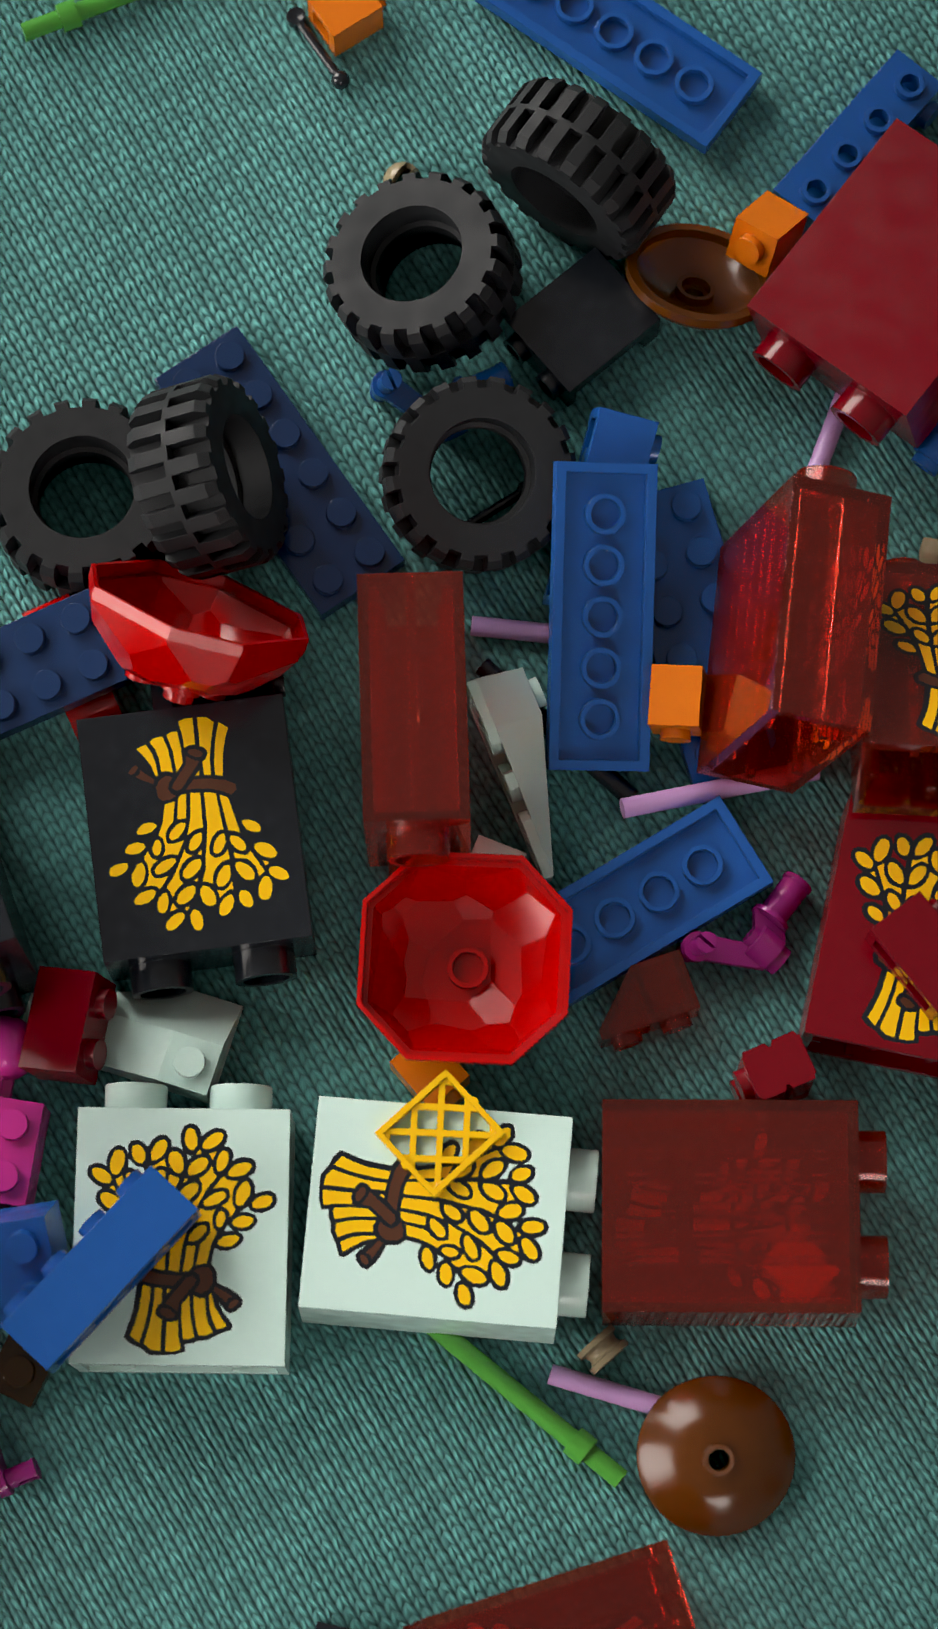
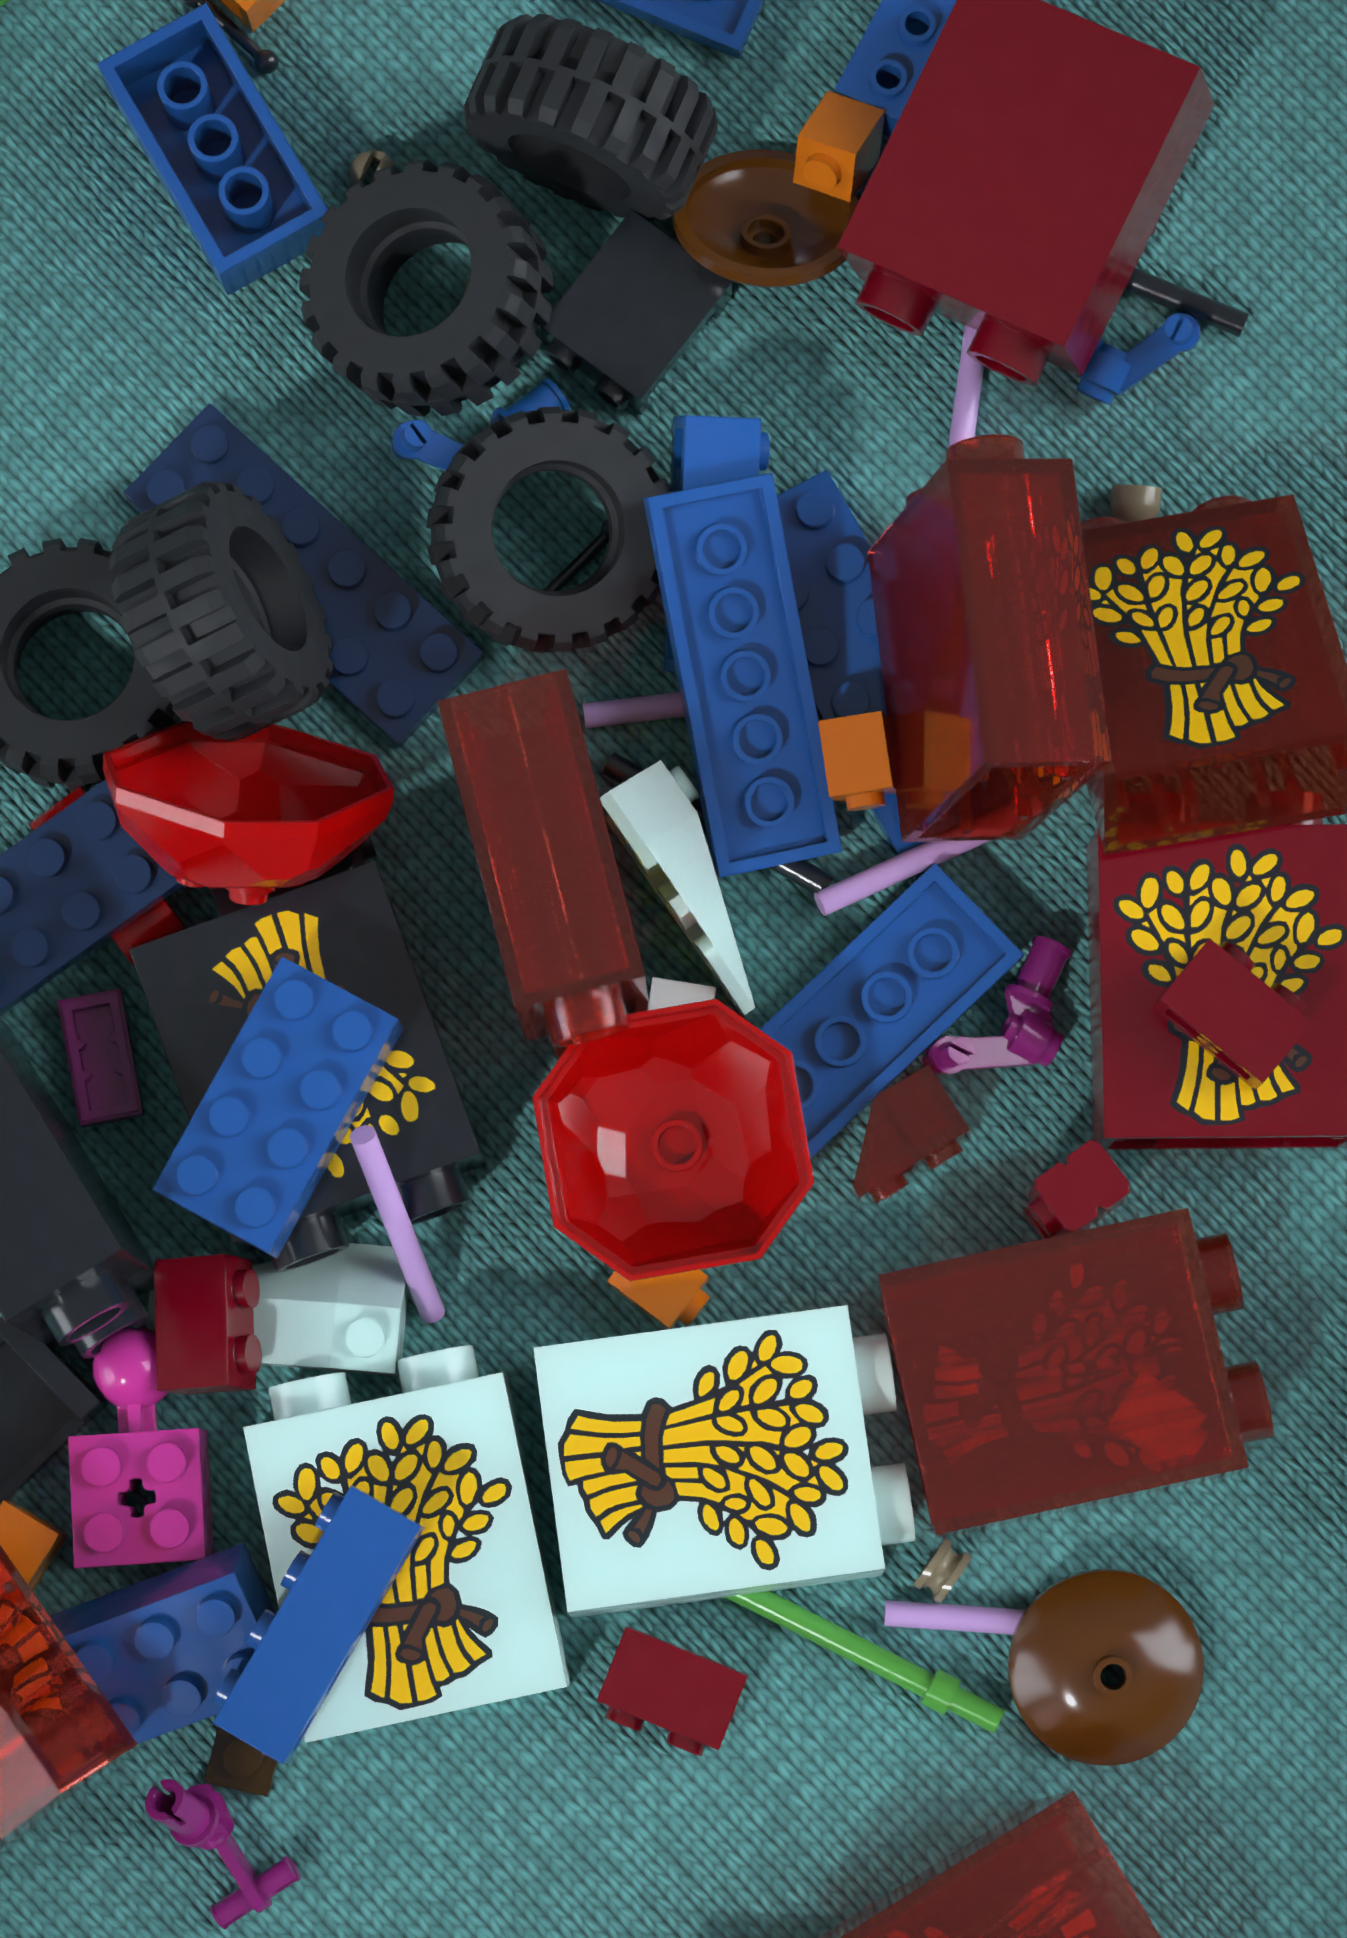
camera: 10 degrees left, 5 degrees up
(35, 805) = (101, 1058): none -> magenta plate
(163, 863) = (279, 1107): none -> blue brick
(235, 978) = (397, 1223): none -> lavender bar
(285, 134) = (215, 148): none -> blue brick
(366, 1394) = (672, 1690): none -> dark red brick
(471, 1105) = (660, 1404): yellow window -> none

